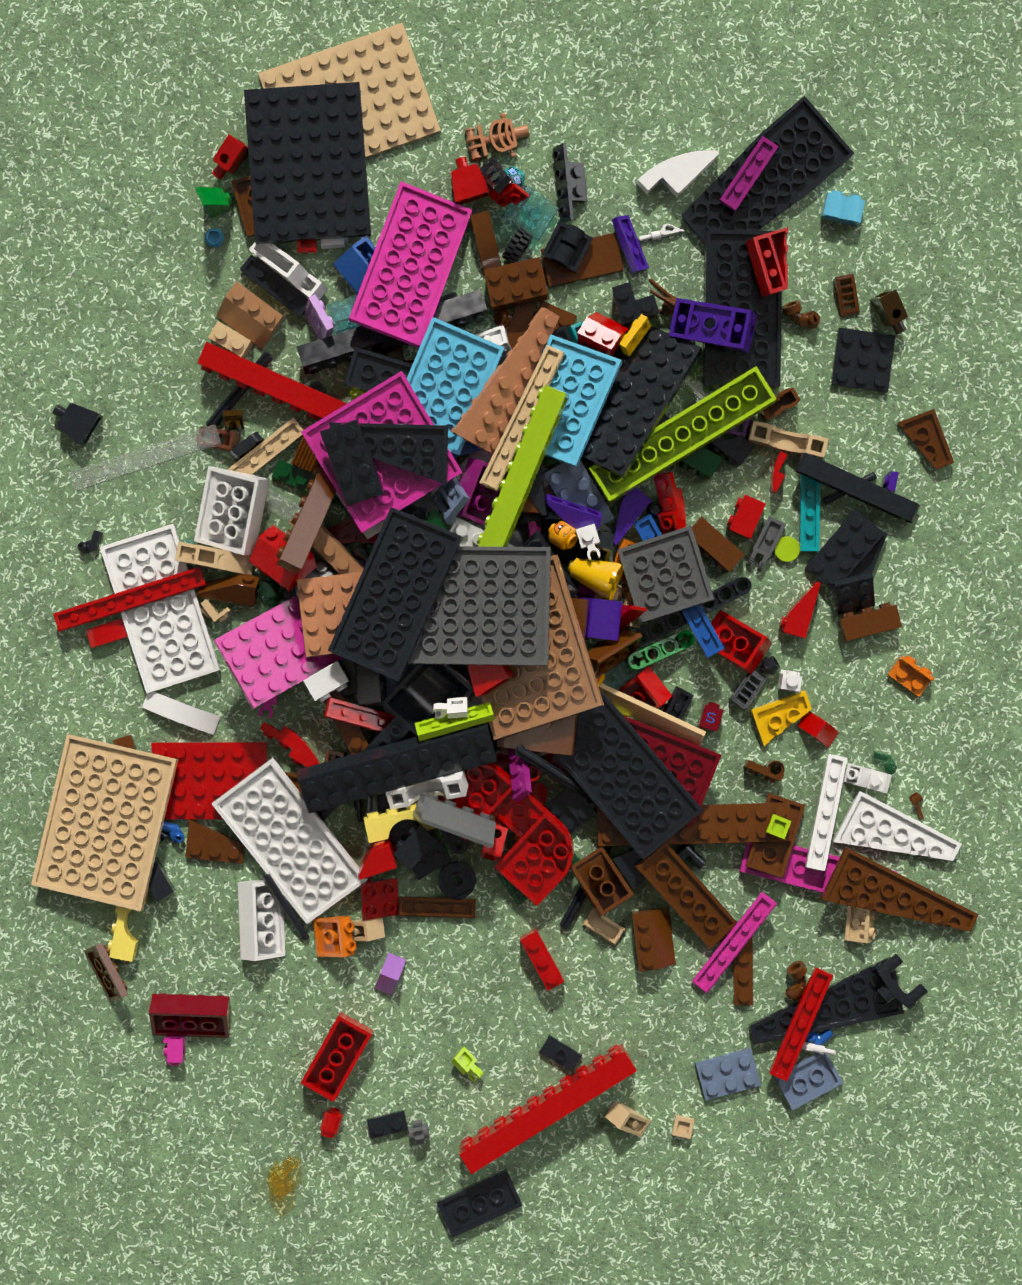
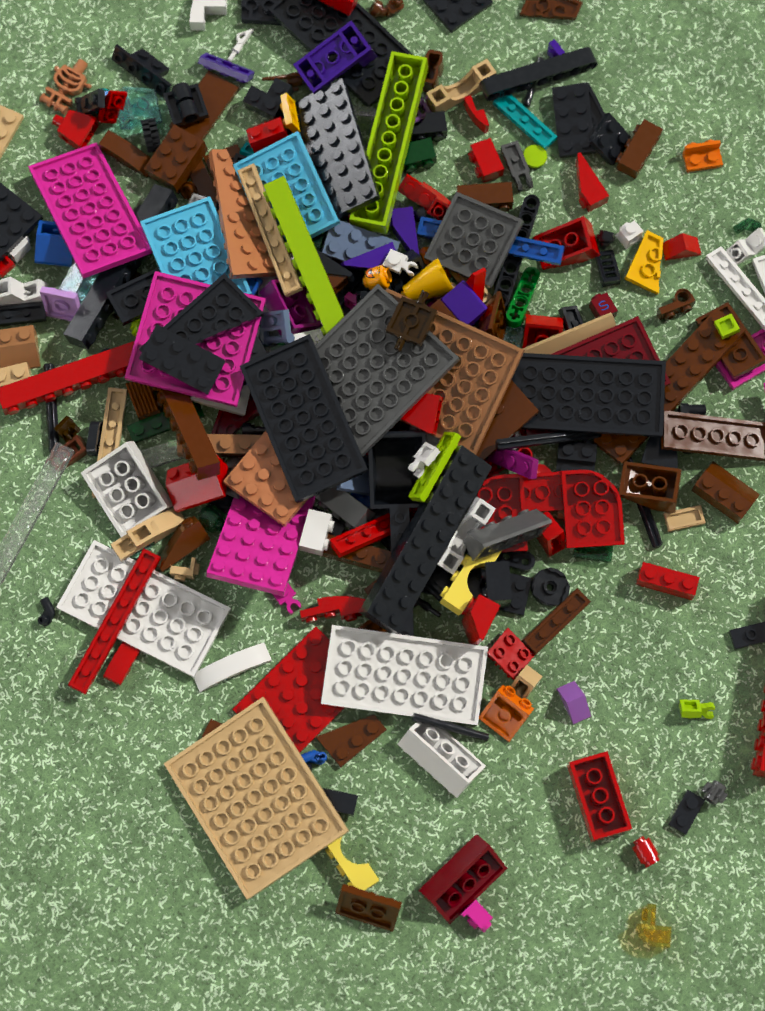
camera: 45 degrees left, 15 degrees down
(541, 603) = (411, 321): none -> dark brown plate

